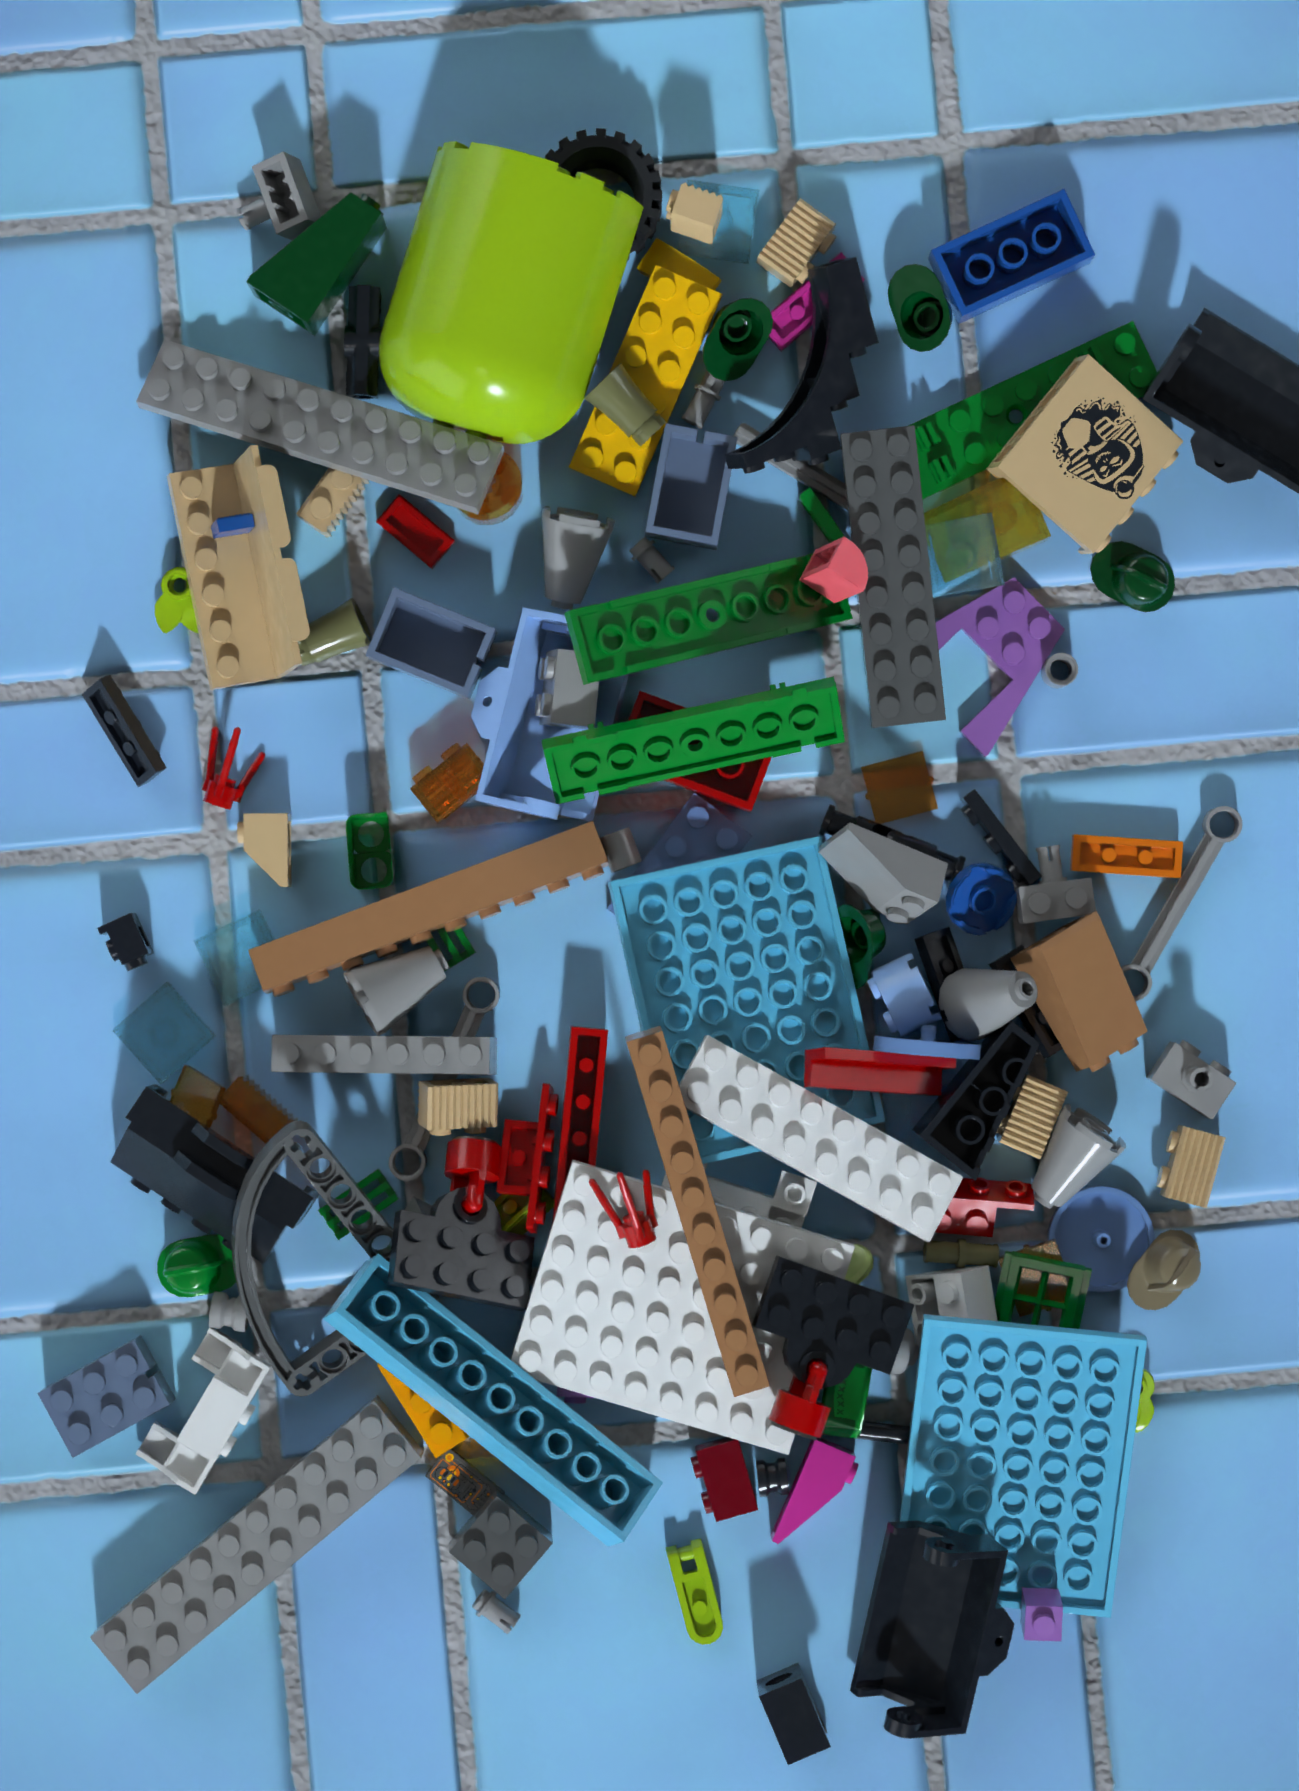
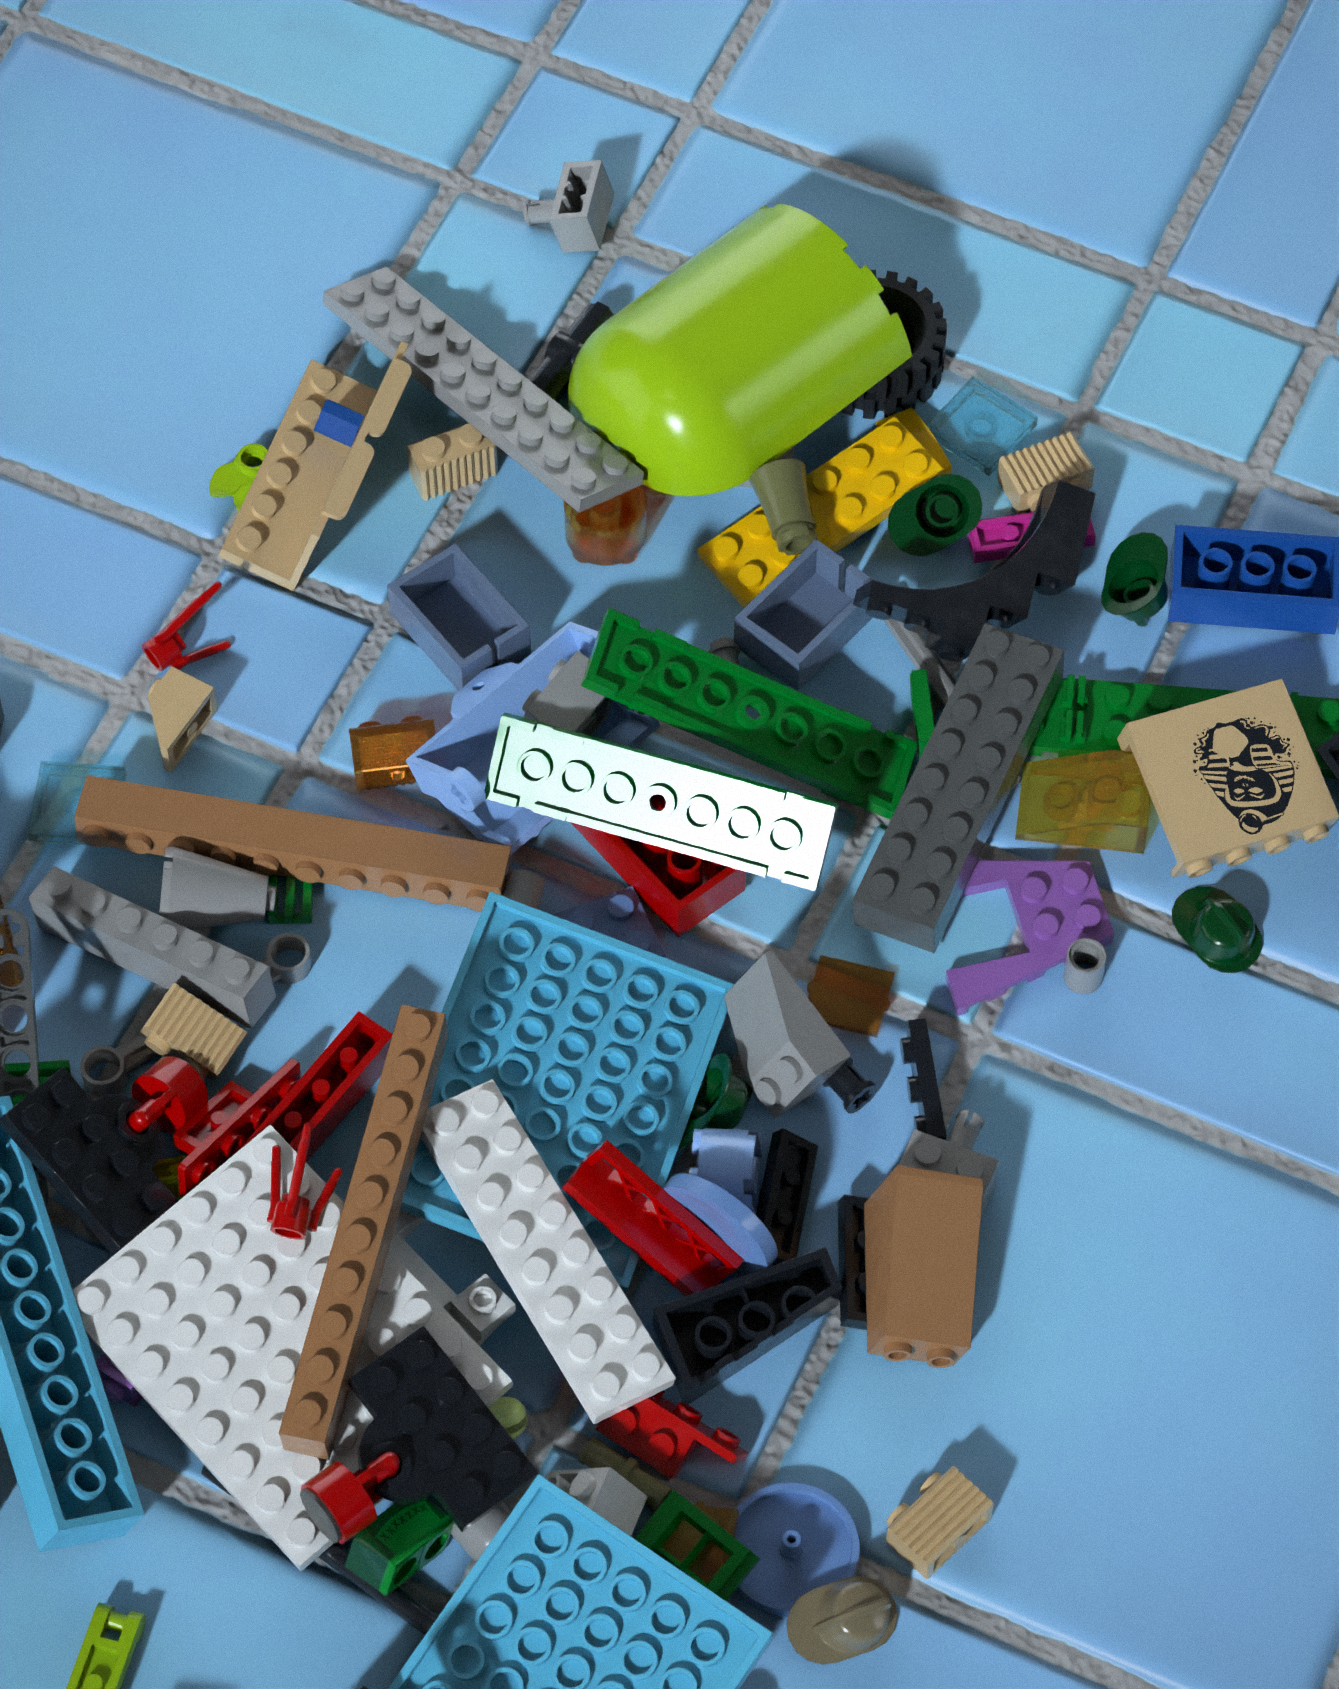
camera: 35 degrees right, 30 degrees down
(124, 730) = (111, 551): black plate -> none
(320, 262) = (565, 264): dark green slope -> none
(335, 634) = (365, 567): olive plant -> none
(363, 852) = (272, 739): green piece -> none
(415, 531) = (511, 533): red tile -> none
(571, 553) = (663, 596): light grey cone -> none
(695, 212) = (960, 387): tan brick -> none
(703, 400) = (874, 556): light grey axle -> none
(725, 1478) = (215, 1562): dark red brick -> none
(772, 1477) = (266, 1590): black wheel -> none
(815, 1484) = (306, 1625): dark pink slope -> none
(837, 570) = (903, 738): coral brick -> none
(963, 555) = (1046, 808): clear light blue tile -> none
(981, 898) = (867, 1132): blue tile -> none
(984, 1000) = (813, 1213): light grey cone -> none
(1031, 1116) = (790, 1374): tan brick -> none
(1073, 1156) = (809, 1435): light grey cone -> none
(1126, 856) = (1053, 1178): orange plate -> none
(1181, 898) = (1086, 1251): light grey piece -> none
(1191, 1079) = (991, 1432): light grey brick -> none

